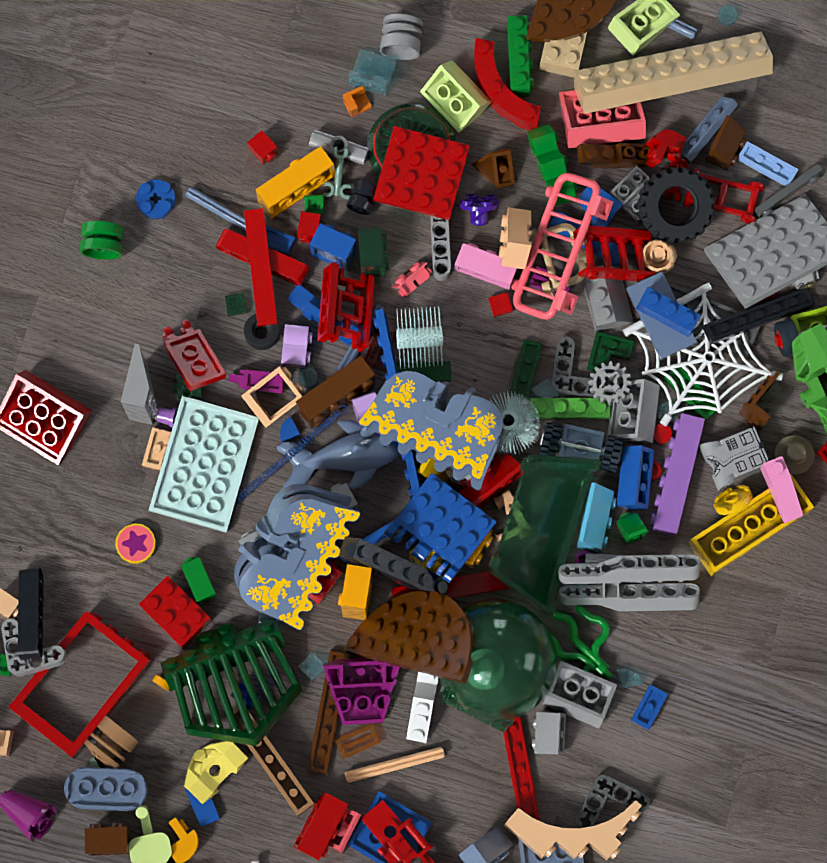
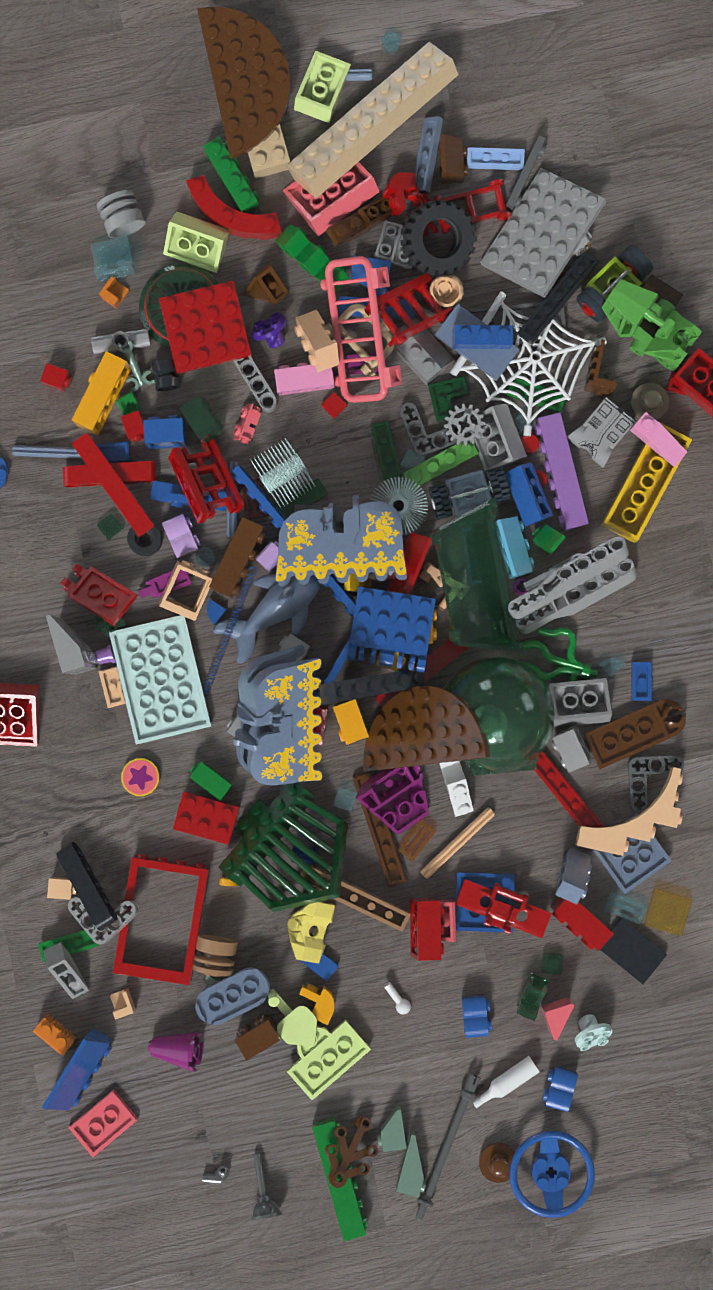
camera: 25 degrees left, 10 degrees up
(618, 751) = (635, 732): none -> reddish brown plate
(732, 500) = (620, 469): yellow tile -> none

